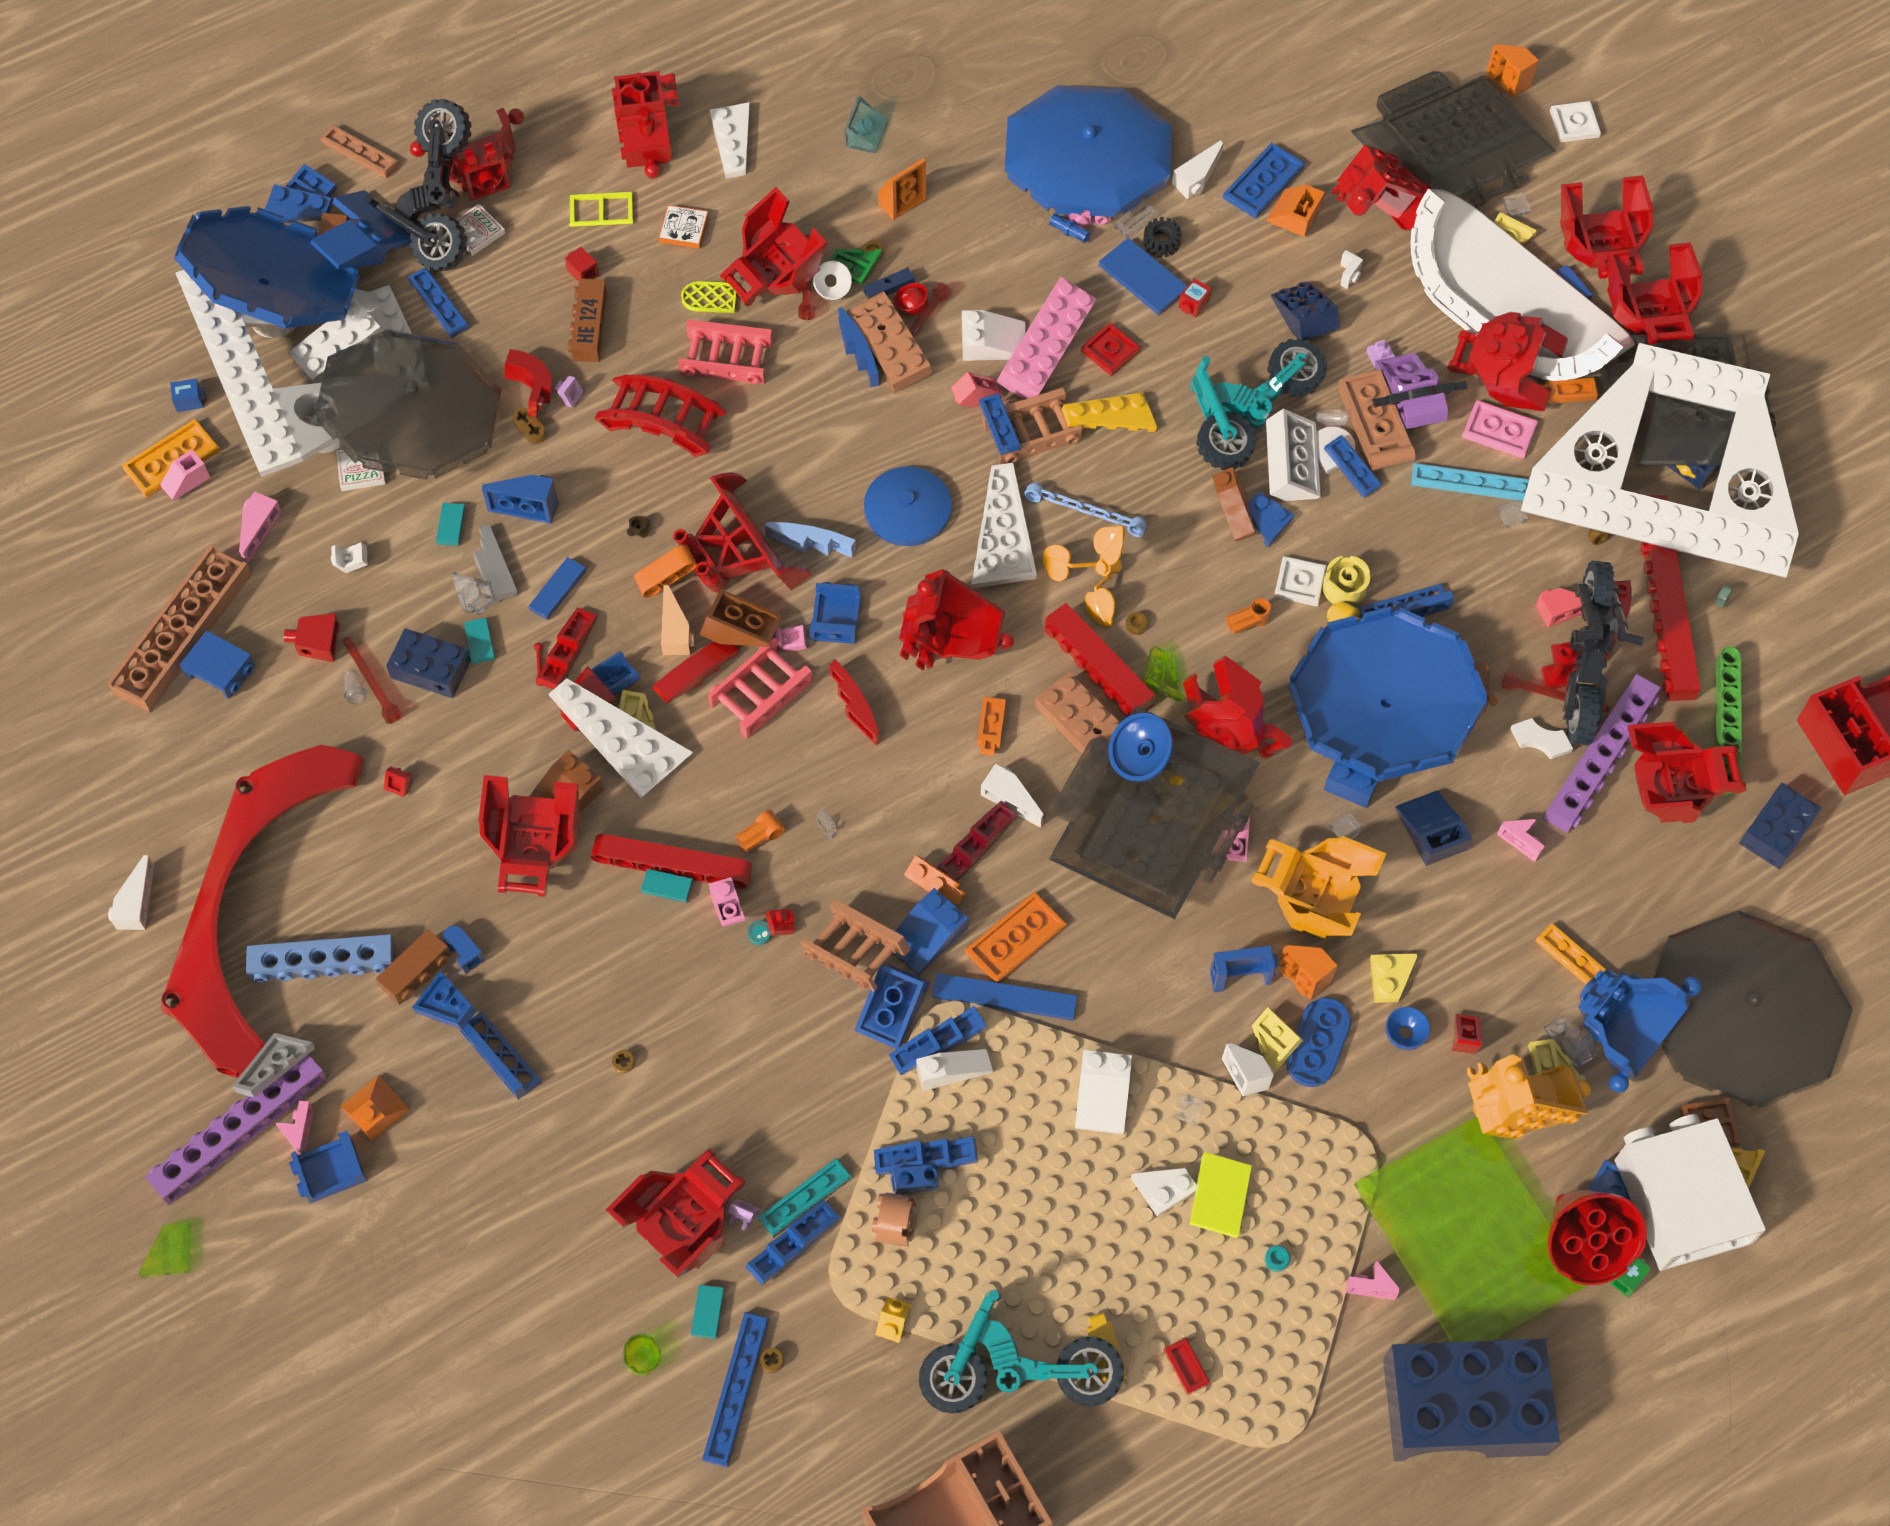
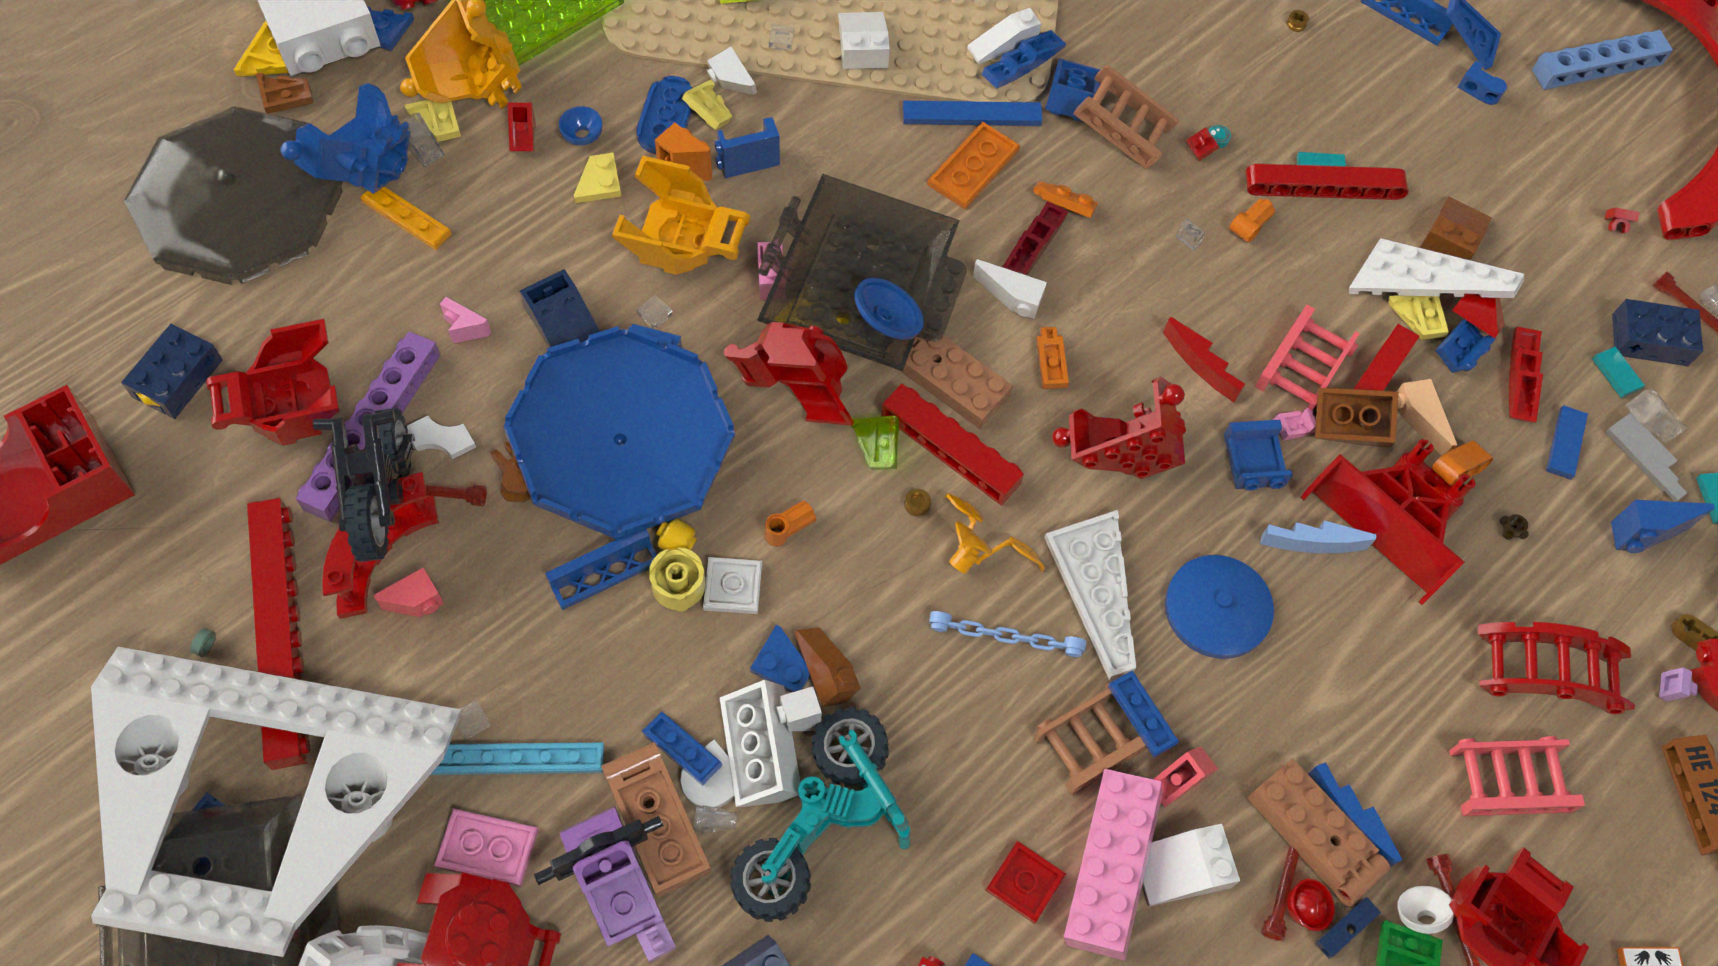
camera: 165 degrees right, 0 degrees up
(413, 967) = (1518, 60): dark orange brick -> none
(528, 832) = (1475, 172): red piece -> none
(538, 647) = (1554, 374): red hinge -> none
(718, 297) = (1571, 849): neon yellow window -> none
(726, 902) = (1258, 143): bright pink slope -> none
(930, 930) = (1058, 155): blue slope -> none
(1122, 411) = (997, 774): yellow wing -> none
(1261, 464) = (800, 710): none -> white slope
(1571, 390) = (402, 915): orange hinge -> none
(1728, 710) = (211, 495): bright green beam -> none

